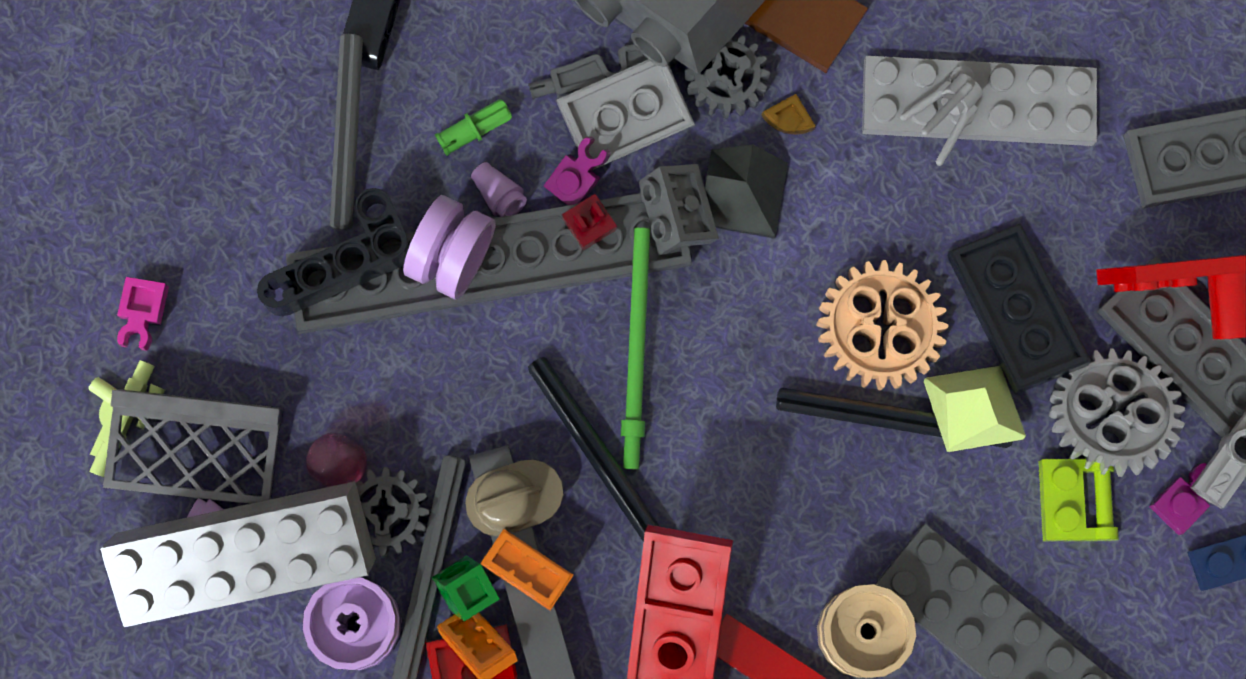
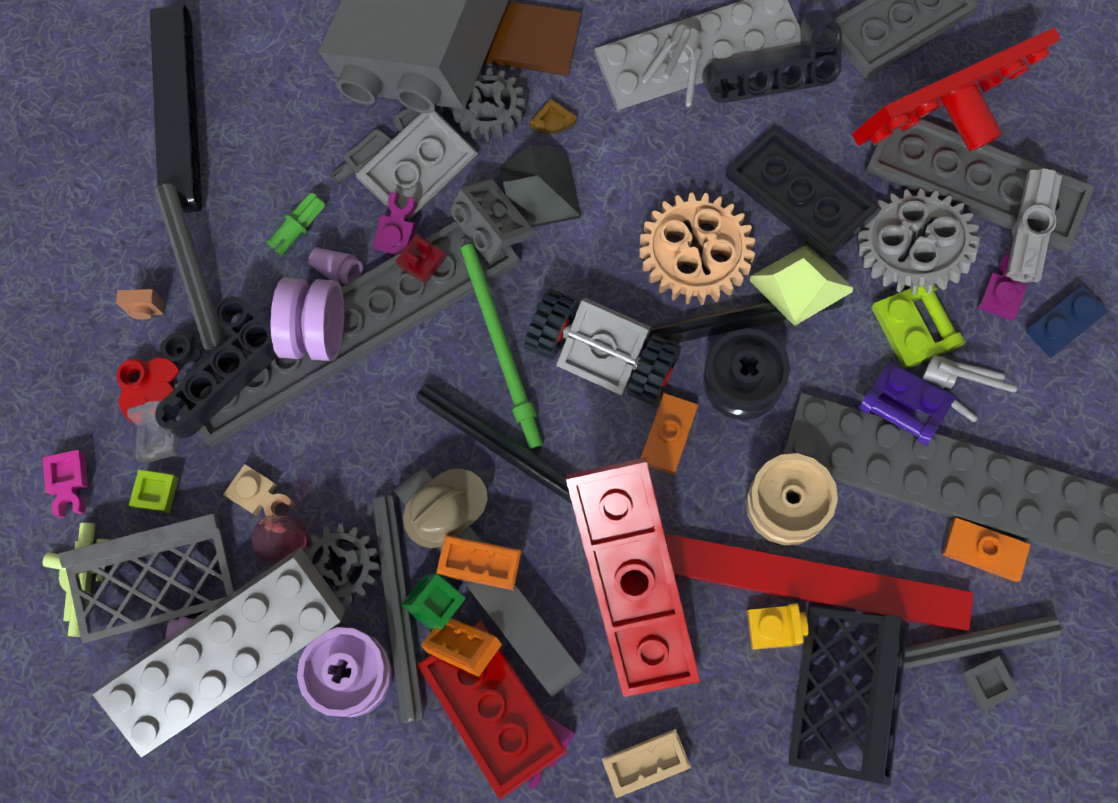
camera: 10 degrees left, 5 degrees down
(225, 357) = (153, 491): none -> lime plate
(242, 303) = (152, 439): none -> clear bracket
(255, 249) = (151, 386): none -> red plate
(281, 150) = (140, 303): none -> nougat plate
(295, 208) = (184, 340): none -> black plate
(326, 399) = (255, 491): none -> tan plate
(740, 393) = (602, 346): none -> plate
(772, 510) = (669, 433): none -> orange plate
(895, 469) = (752, 354): none -> black wheel
(998, 154) = (728, 78): none -> black beam
(1036, 574) = (908, 402): none -> dark purple plate
(1083, 561) = (944, 372): none -> light grey plant

